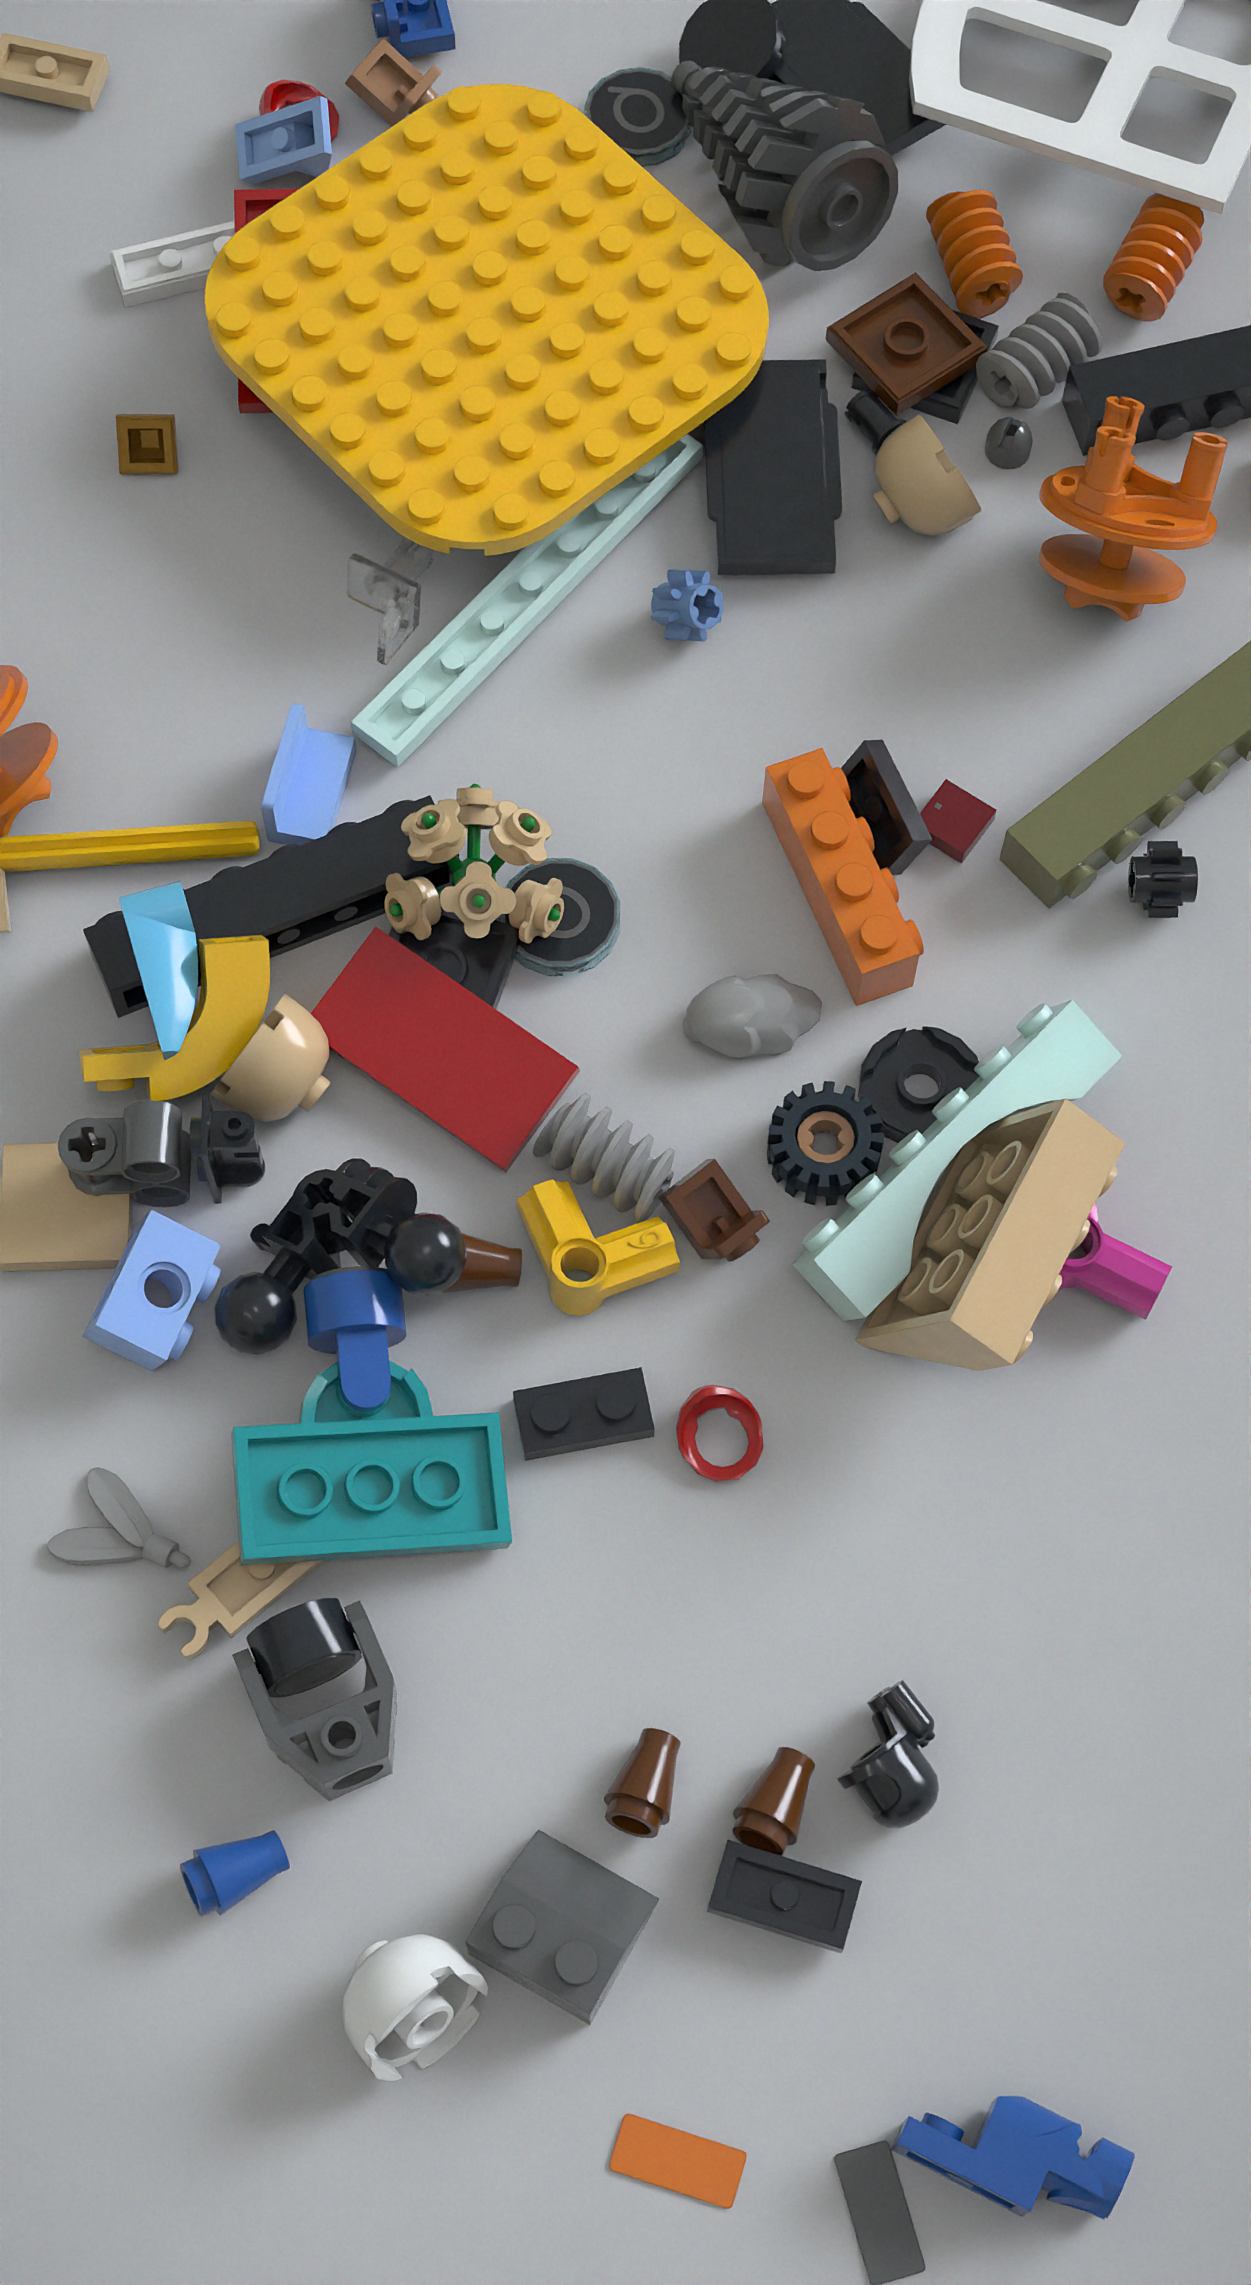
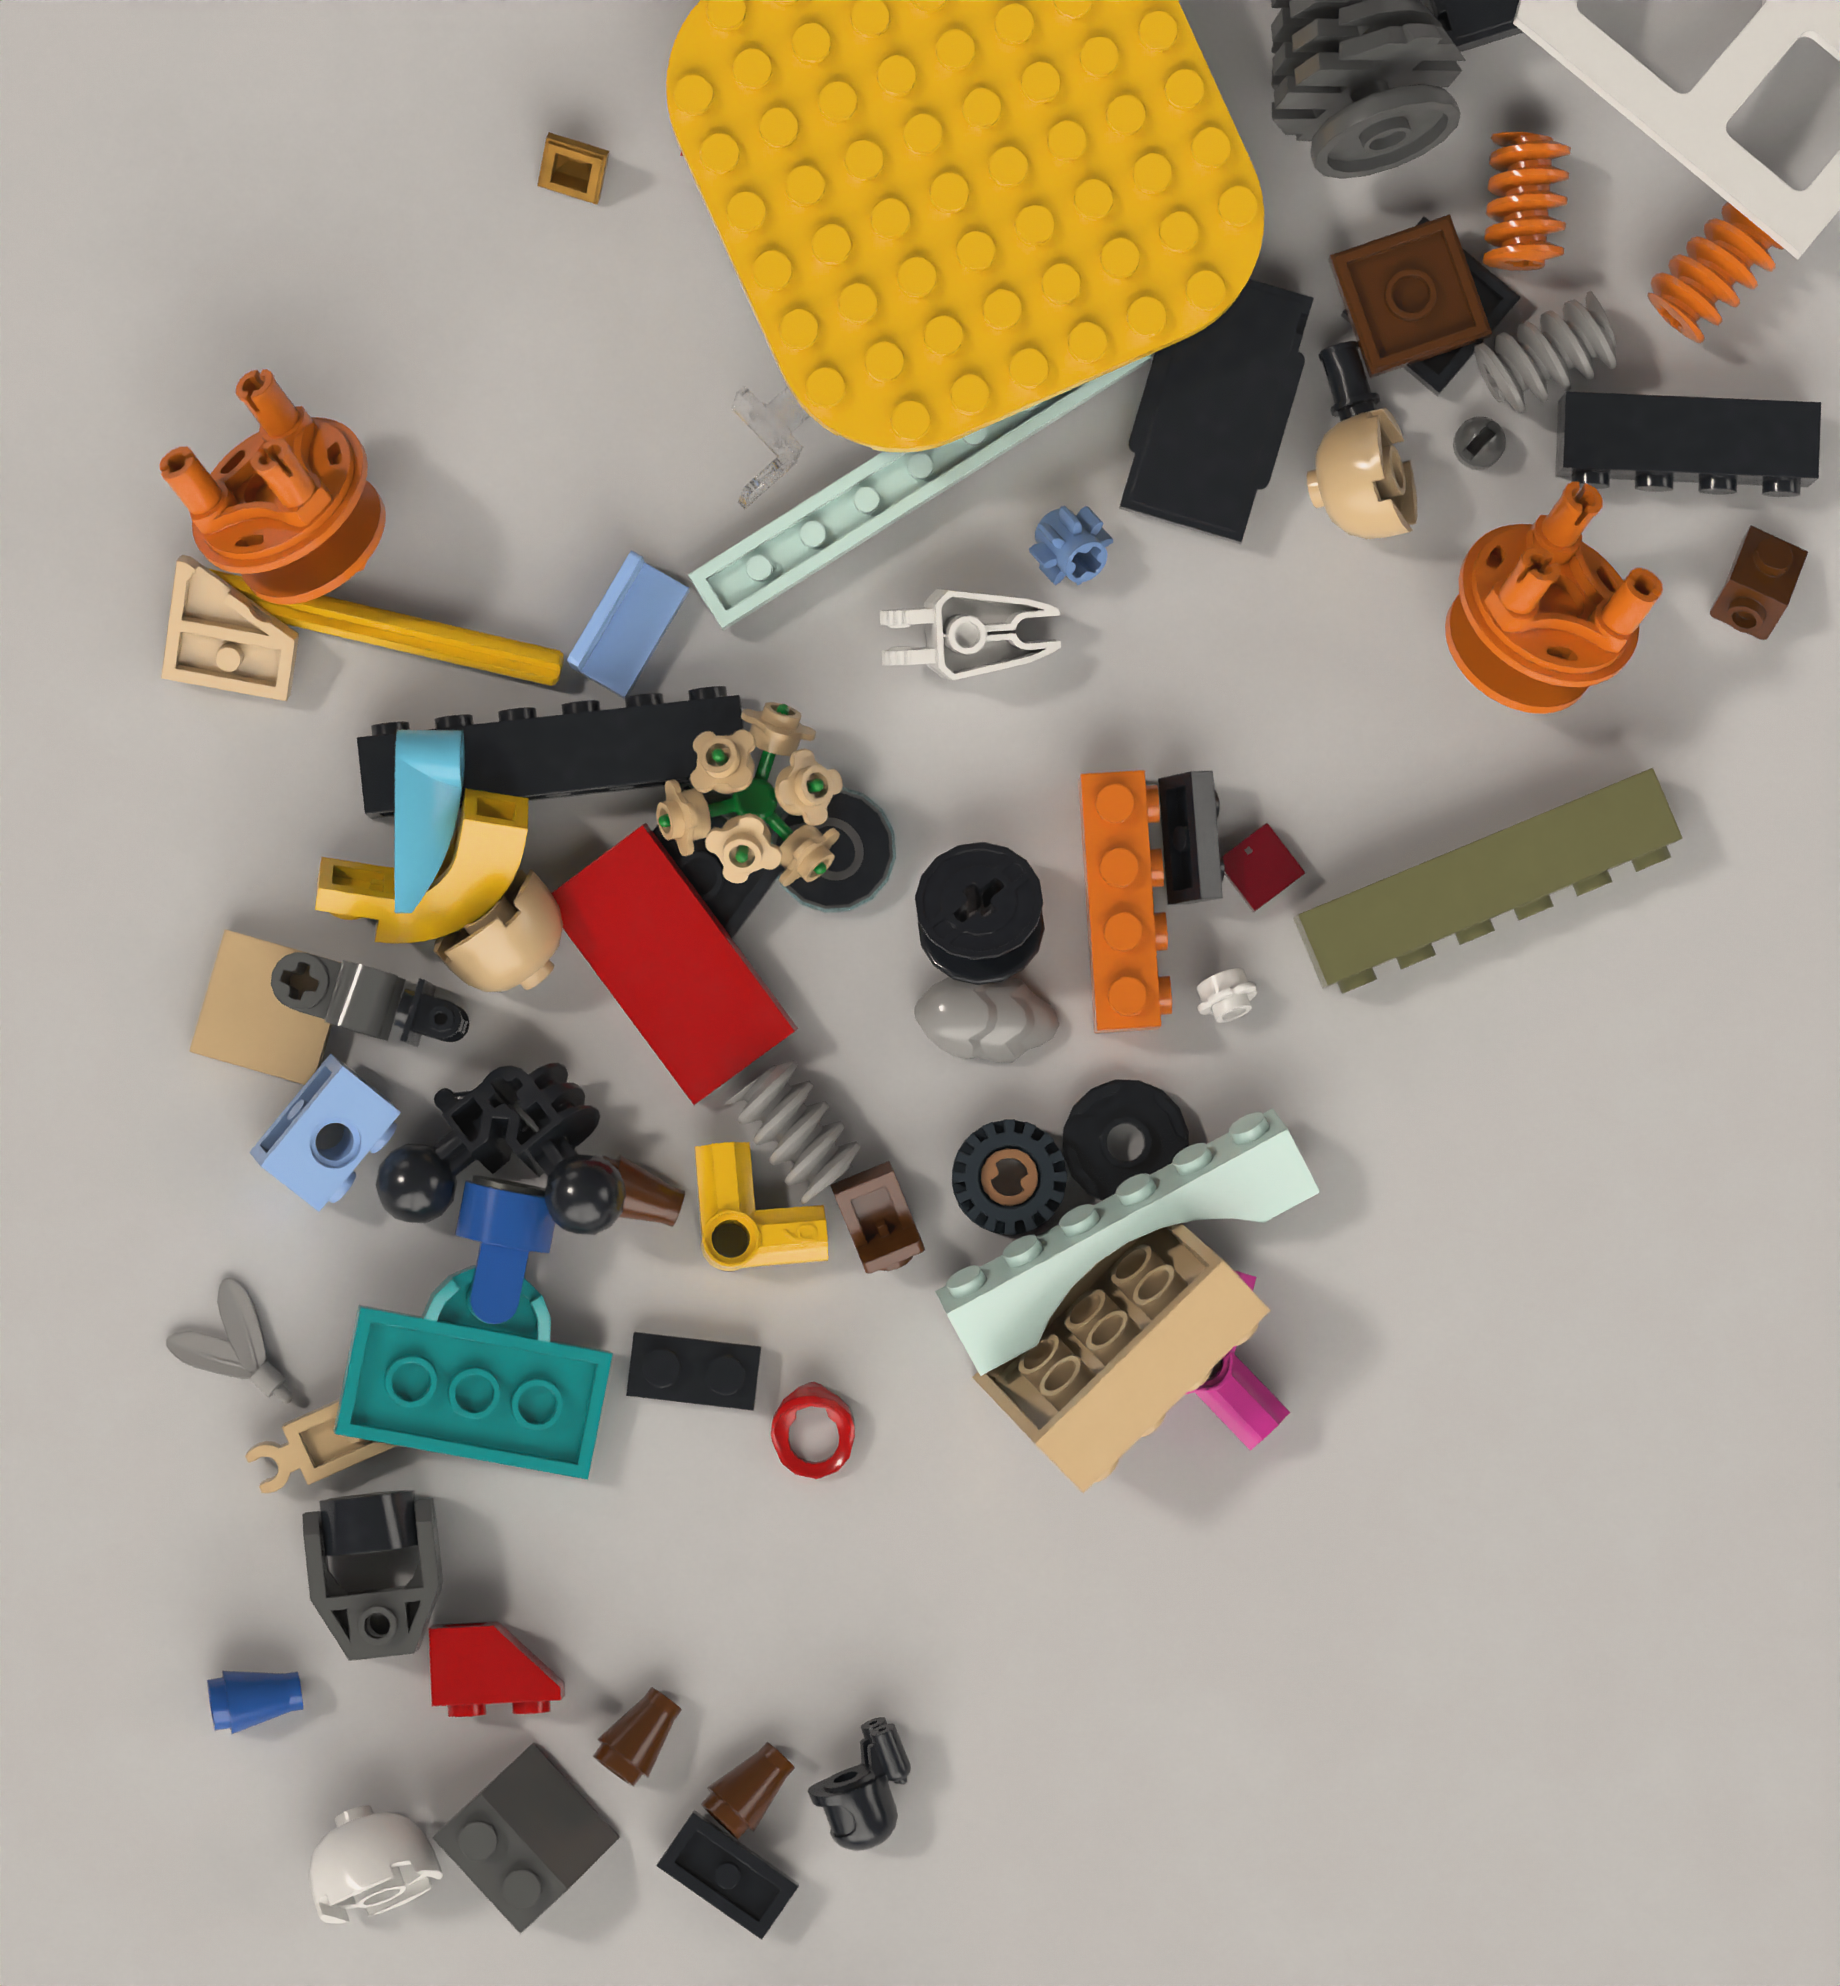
camera: 15 degrees right, 20 degrees up
(470, 1758) = (487, 1665): none -> red slope
(623, 694) = (969, 633): none -> white hinge
(715, 916) = (980, 879): none -> black piece
(965, 928) = (1226, 995): none -> white plate
(1162, 879) = (1439, 1006): black gear -> none

